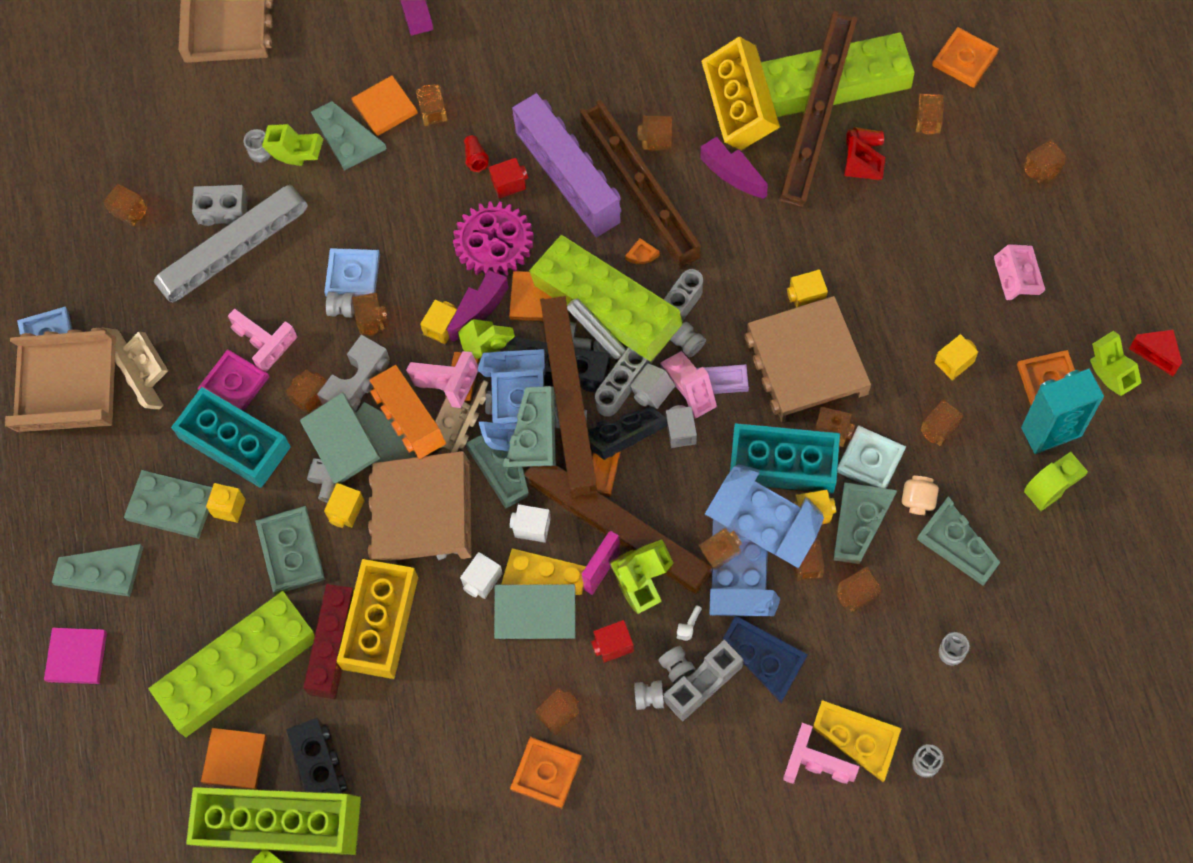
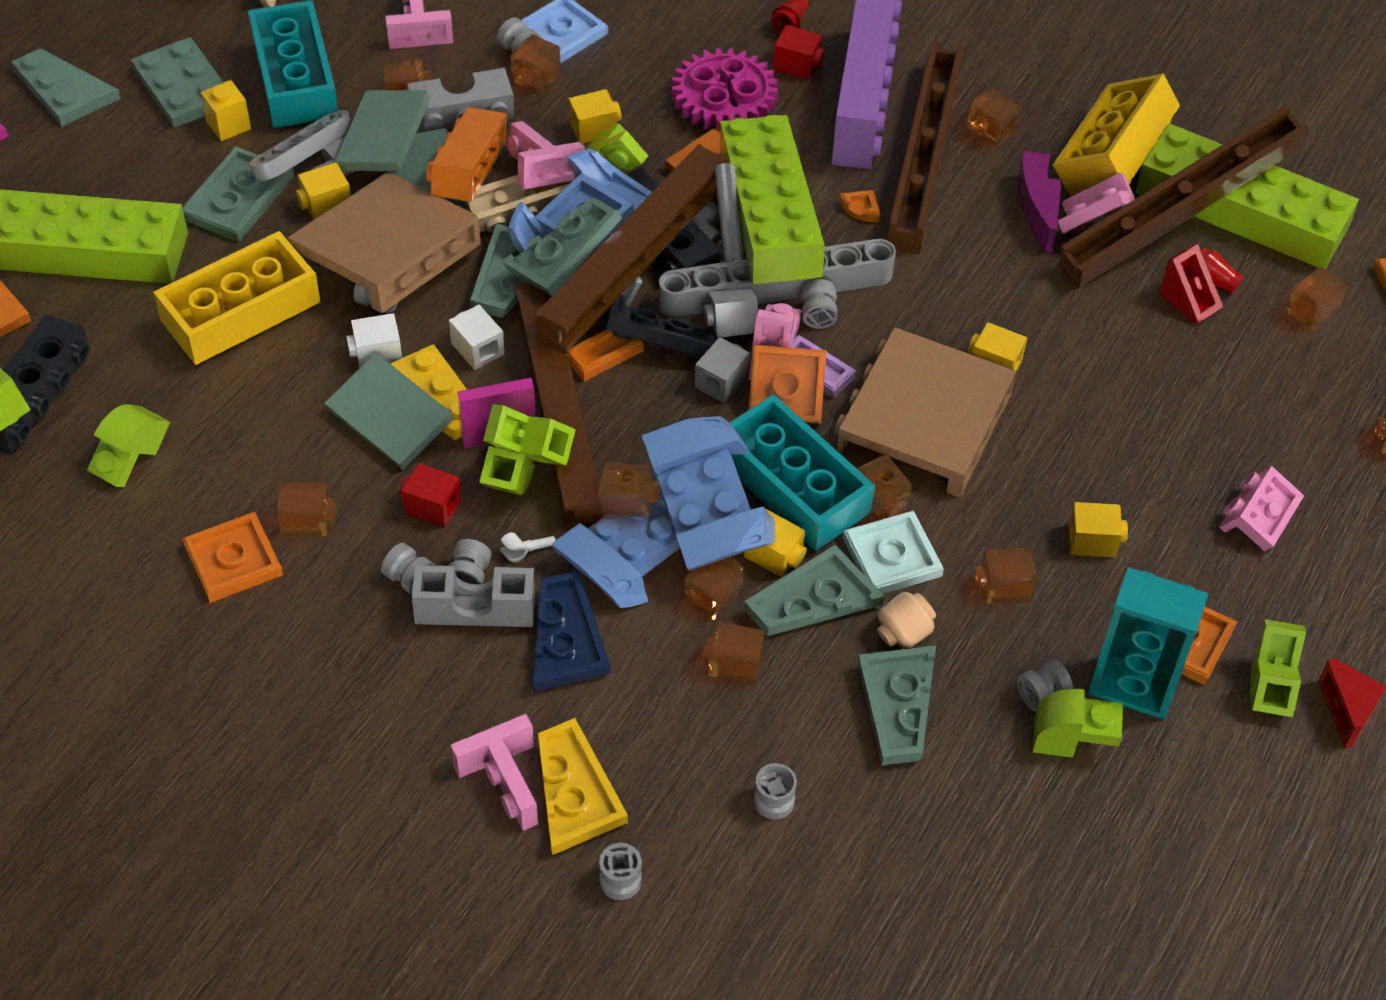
camera: 35 degrees right, 15 degrees down
(235, 380) = (353, 33): dark pink tile -> none
(299, 516) = (300, 145): none -> light grey beam
(323, 670) = (132, 303): dark red brick -> none
(418, 762) = (124, 436): none -> lime brick
(479, 303) = (651, 129): magenta slope -> none
(725, 405) = (792, 376): none -> orange tile
(774, 150) = (1095, 203): none -> bright pink bracket
(1017, 470) = (1037, 684): none -> light grey wheel

